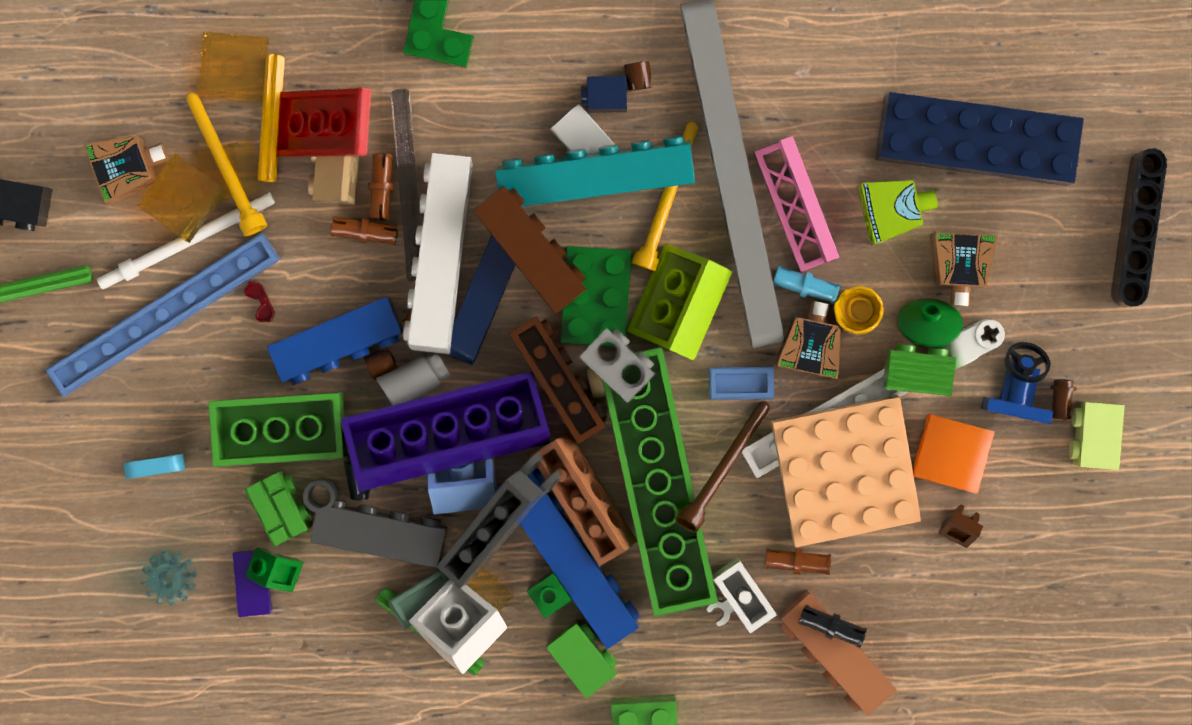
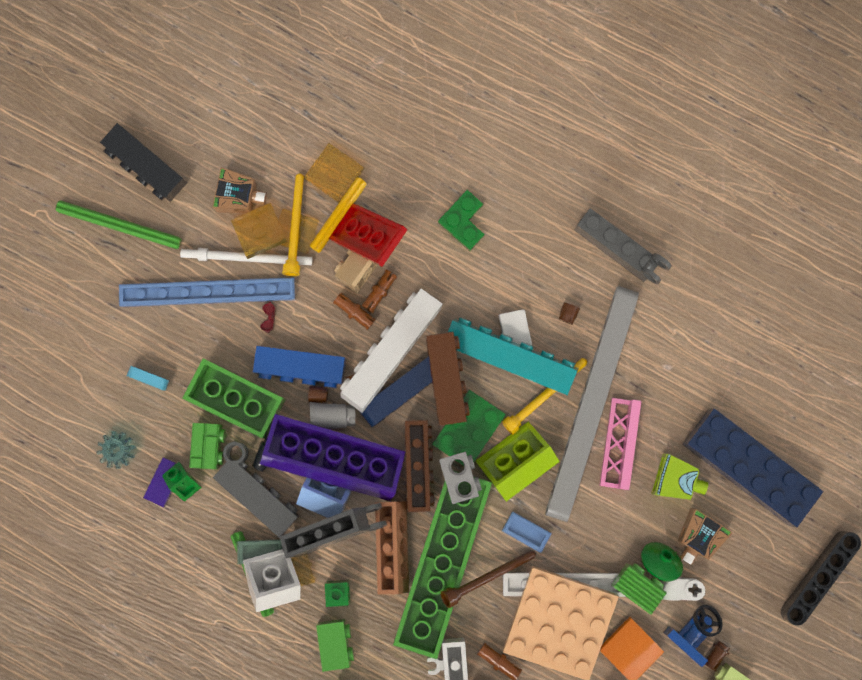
camera: 30 degrees right, 5 degrees down
(406, 174) = (398, 293): clear smoke axle -> none
(578, 570) = (363, 589): blue brick -> none
(596, 384) = (439, 481): tan tile -> none
(605, 94) = (543, 313): dark blue brick -> none
(806, 285) = (599, 495): medium azure pin -> none
(812, 344) = (582, 533): torso -> none
(858, 310) = (622, 529): yellow hair -> none

